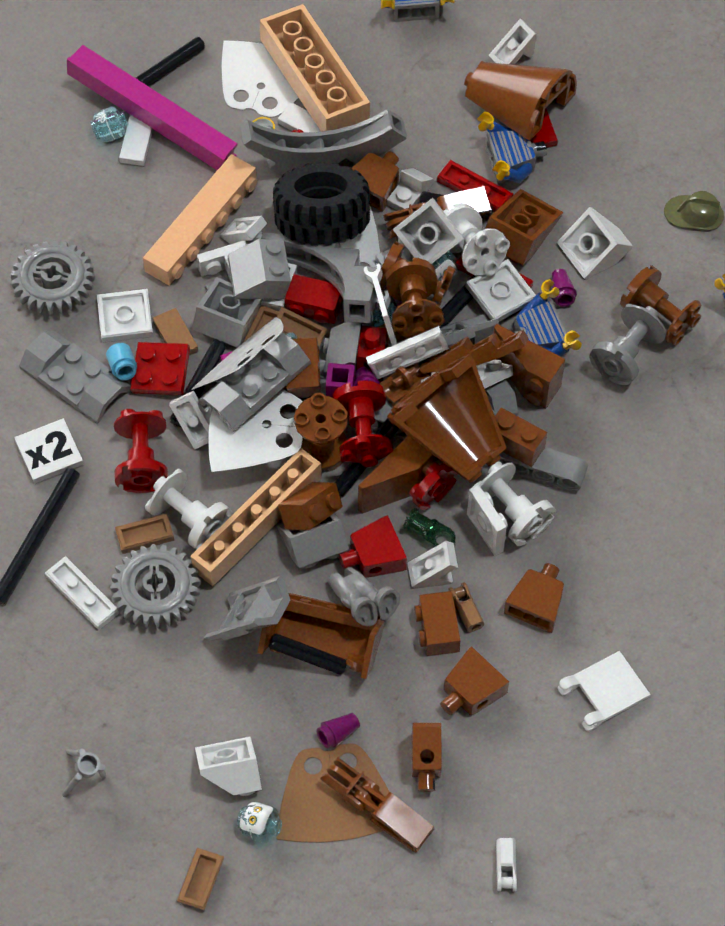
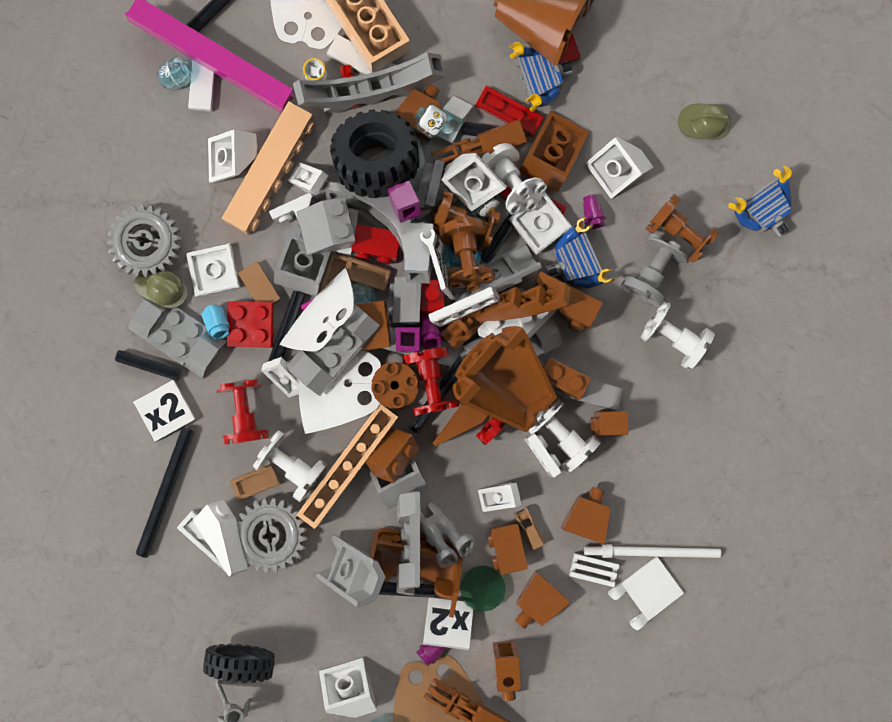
camera: 10 degrees left, 25 degrees up
(36, 402) = (148, 365): none -> black axle
(65, 323) = (161, 288): none -> olive piece
(99, 574) = (221, 533): none -> white slope
(102, 709) = (238, 663): none -> black tyre
(159, 200) = (230, 154): none -> white slope
(322, 572) = (409, 570): none -> light grey piece
(349, 244) = (404, 201): none -> magenta brick
(359, 699) = (444, 630): none -> white tile
(375, 550) = (450, 485): red torso -> none
(378, 240) = (429, 184): none -> flat silver slope
(386, 177) = (431, 120): none -> head
(404, 666) = (482, 588): none -> clear green tile
(428, 528) = (493, 461): clear green connector -> none
(545, 650) = (612, 575): none -> white tile
(559, 639) = (608, 551): none -> white bar
(568, 492) = (609, 423): none -> dark orange brick
(659, 415) = (683, 340): none -> white piece

